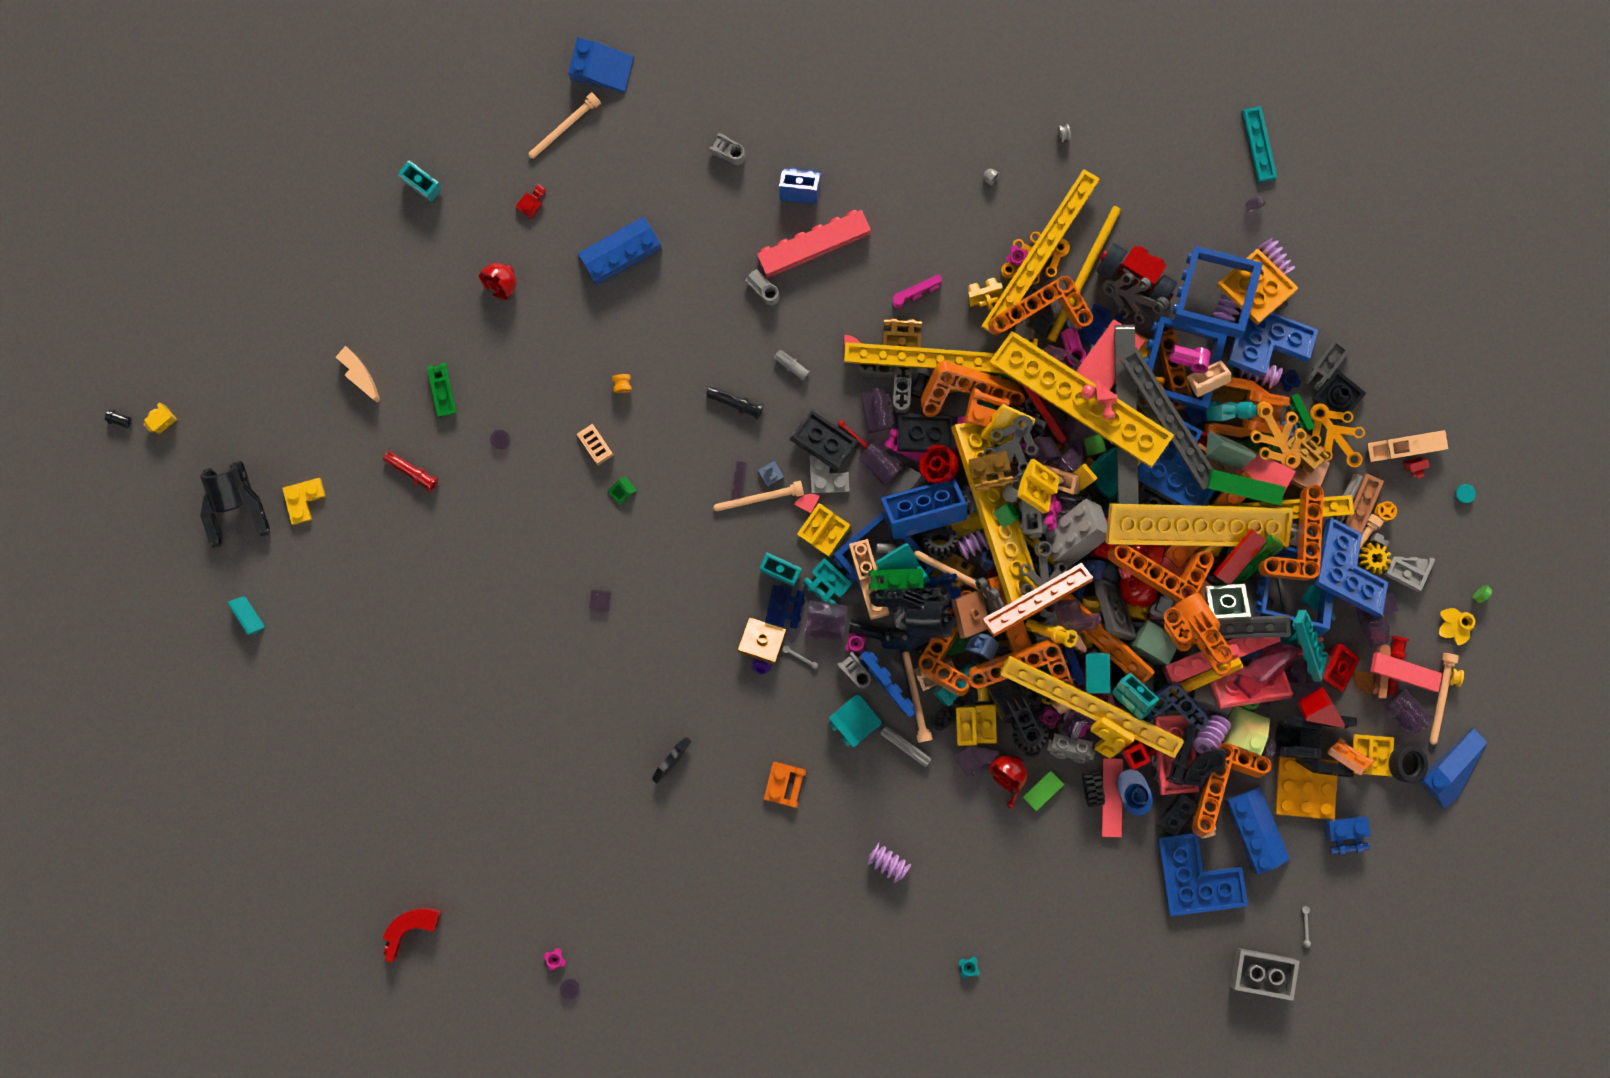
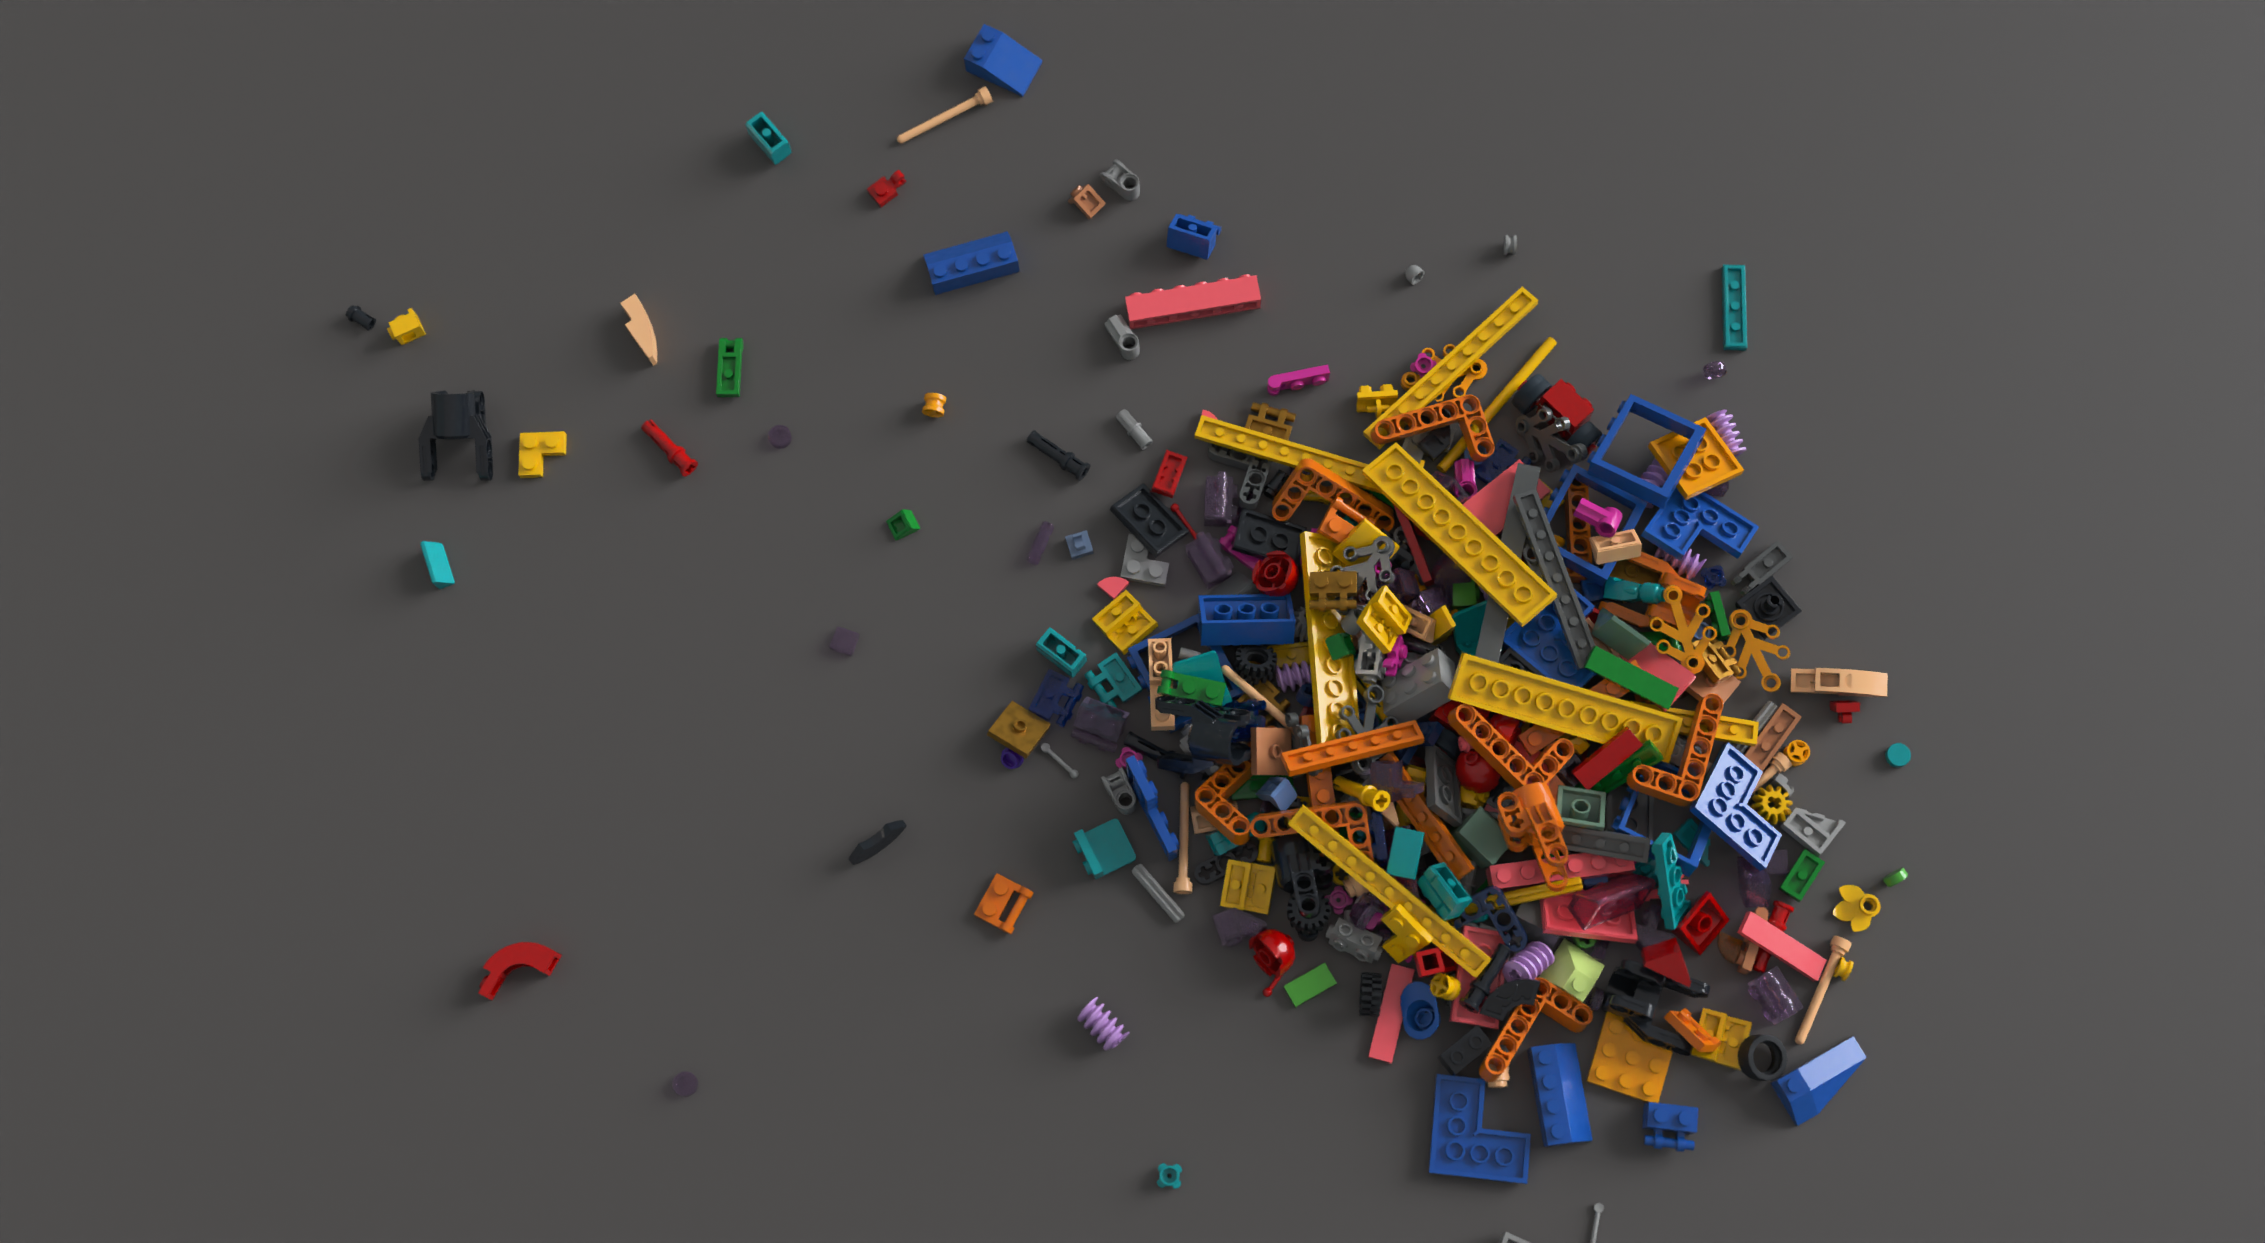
camera: 15 degrees right, 10 degrees down
(499, 279) = (826, 260): red cylinder -> none
(554, 964) = (672, 1049): dark pink plate -> none
(603, 457) = (892, 481): light nougat slope -> none
(703, 174) = (1086, 200): none -> nougat bracket
(794, 489) = (1101, 568): light nougat piece -> none
(830, 396) = (1169, 474): none -> red plate
(1104, 397) = (1484, 534): coral piece -> none
(1148, 774) = (1440, 989): none -> yellow wheel
(1409, 610) = (1801, 875): none -> green plate

